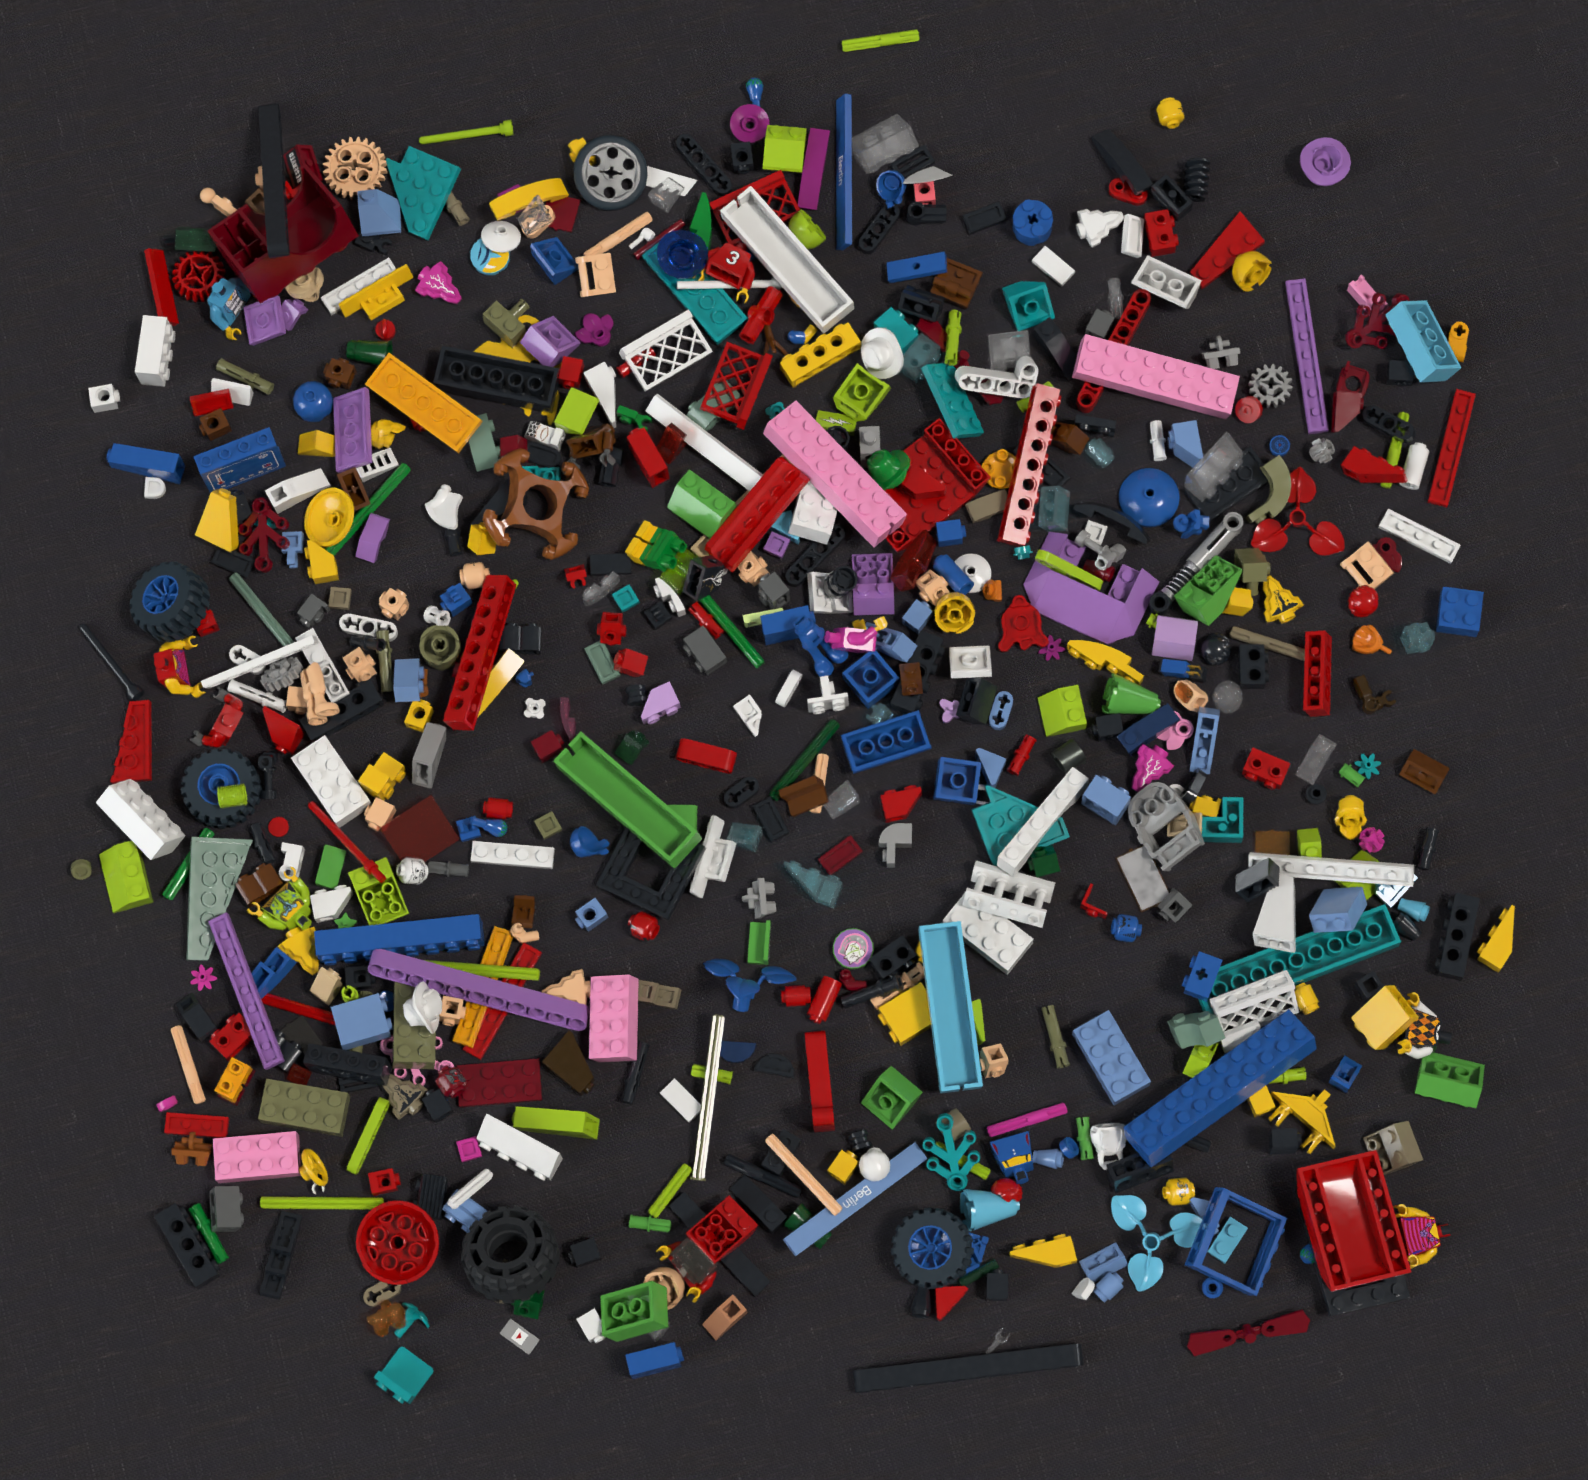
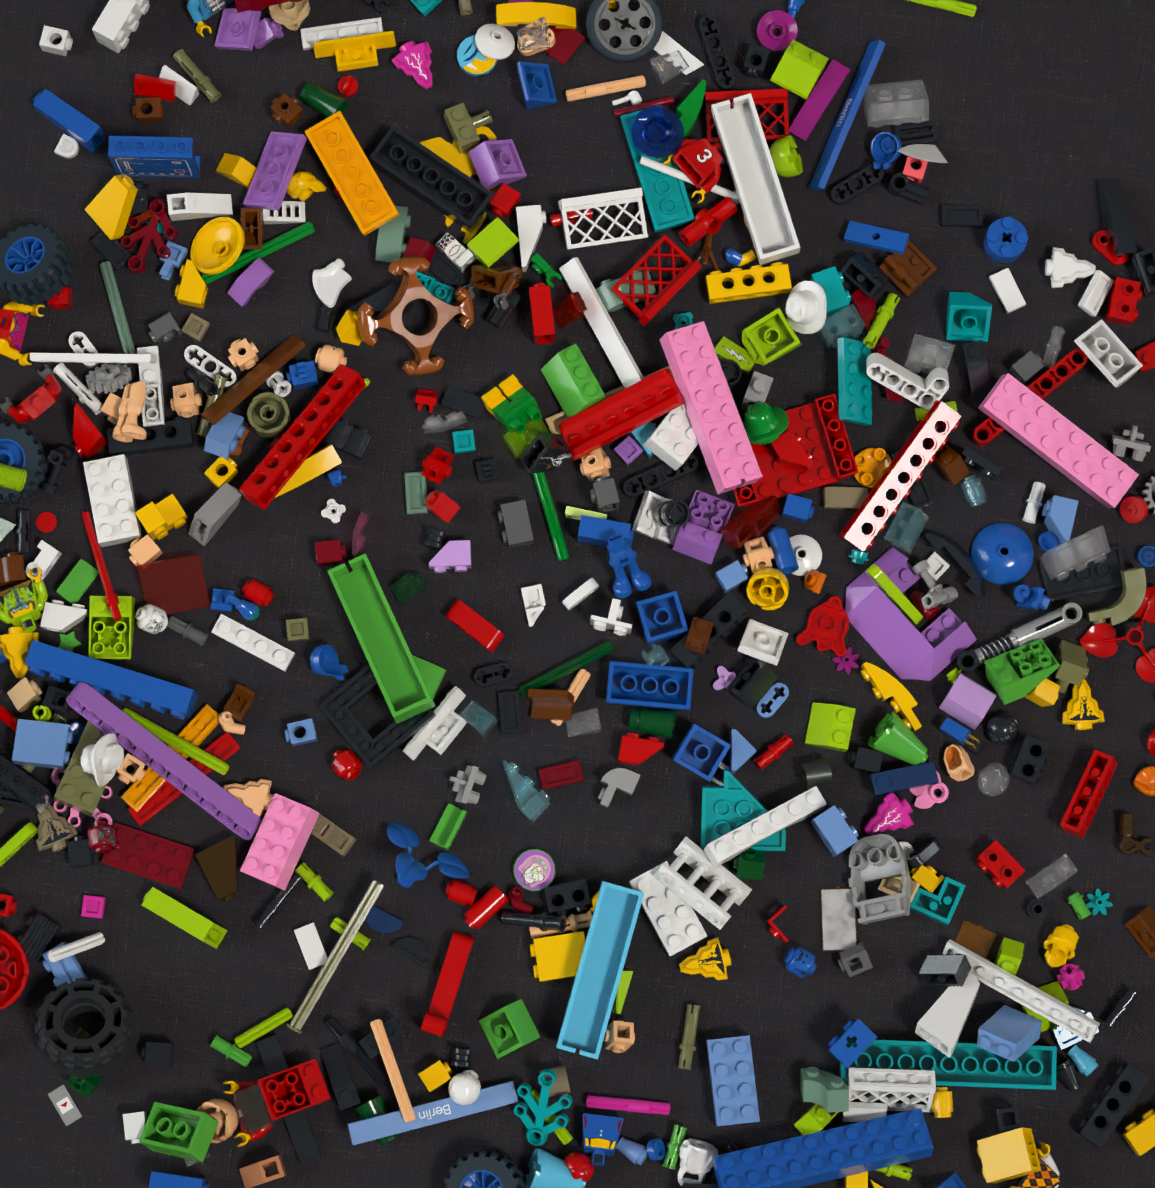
camera: 15 degrees right, 5 degrees up
(312, 401) = (250, 126): blue cylinder -> none
(412, 622) = (253, 380): none -> reddish brown tile
(518, 1147) = (138, 926): white slope -> none
(594, 327) = (546, 167): magenta plate -> none
(602, 274) = (575, 117): light nougat plate -> none
(659, 1042) = (314, 882): none -> lime pin
(663, 590) = (504, 453): white slope -> none
(706, 620) = (530, 495): red pin -> none
(857, 638) = (661, 573): dark pink torso -> none
(893, 643) = (692, 589): medium blue slope -> none
(903, 773) = (653, 722): none -> dark green plant
(1044, 962) = (708, 961): none -> yellow rock
(1183, 467) = (1048, 540): none -> blue tile
(1204, 739) = (954, 811): medium blue slope -> none
(1269, 643) = (1055, 744): dark tan axle -> none

